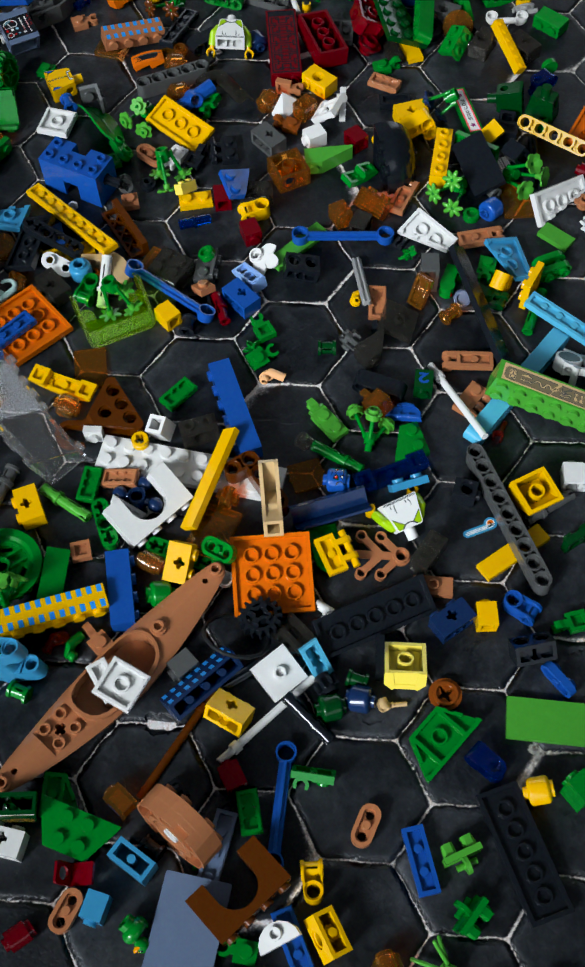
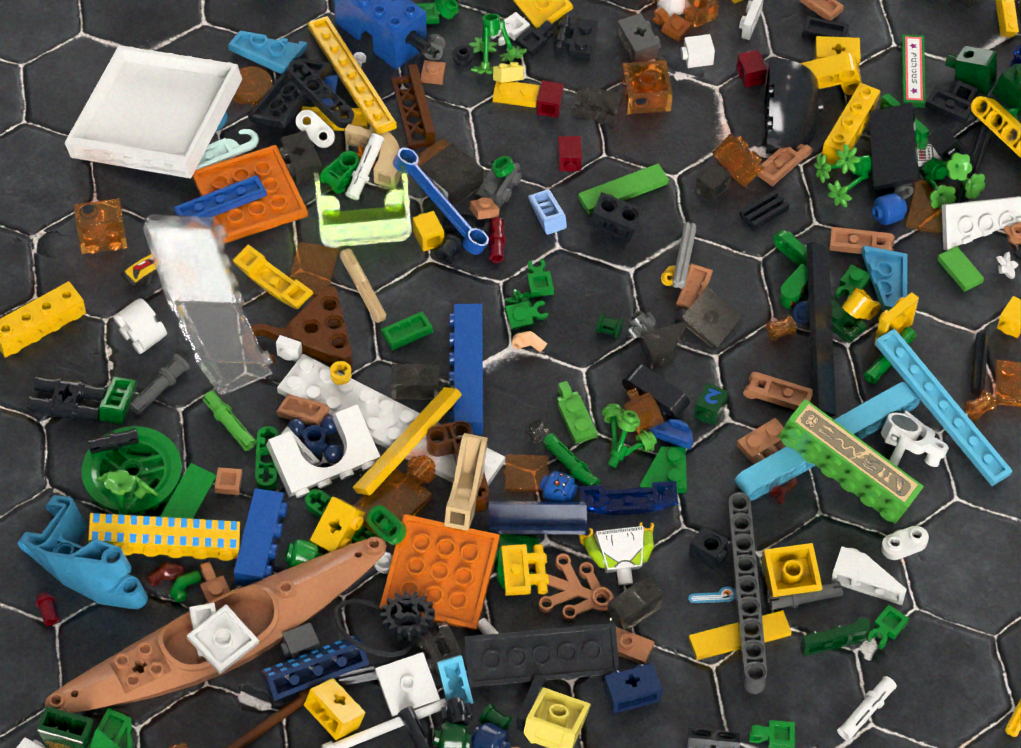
camera: 15 degrees right, 5 degrees down
(19, 691) = (107, 615): green bush -> none
(20, 279) = (263, 134): clear orange arm -> none
(29, 507) = (185, 412): yellow brick -> none
(67, 406) = (269, 306): clear orange head -> none
(79, 268) = (339, 141): dark azure head -> none
(89, 484) = (264, 407): green plate -> none
(112, 286) = (368, 174): plant -> none
(133, 370) = (363, 285): none -> tan axle
(147, 154) = (475, 21): nougat plate -> none
(150, 562) = (303, 517): clear orange brick -> none
(160, 427) = (370, 364): white brick -> none
(194, 221) = (504, 120): clear blue axle -> none
(234, 182) = (571, 84): blue wing -> none
(241, 298) = (527, 234): blue brick -> none
(256, 208) = (588, 126): yellow piece -> none
(264, 258) = (573, 192): white plate -> none
(325, 158) = (700, 83): bright green slope -> none
(328, 108) = (730, 18): white plate -> none
(340, 214) = (691, 161): clear orange brick -> none
(342, 235) = (683, 191): blue piece -> none
(361, 174) = (742, 116): green slope -> none
(408, 254) = (759, 236): green plant -> none
(415, 480) = (655, 515): dark azure plate -> none
(420, 290) = (752, 288): clear orange tile -> none
(427, 231) = (793, 214): white wing -> none
(431, 266) = (772, 268): dark grey brick -> none
(440, 377) = (735, 403): white bar -> none
(444, 255) = (791, 247): none -> green plate
(450, 96) = (869, 41): plant -> none
(471, 215) = (862, 209): green tile -> none
(487, 616) = (674, 695): yellow brick -> none
(492, 131) = (930, 108): yellow brick -> none
(522, 607) = (724, 702): blue piece -> none
(554, 266) = (937, 304): green brick -> none

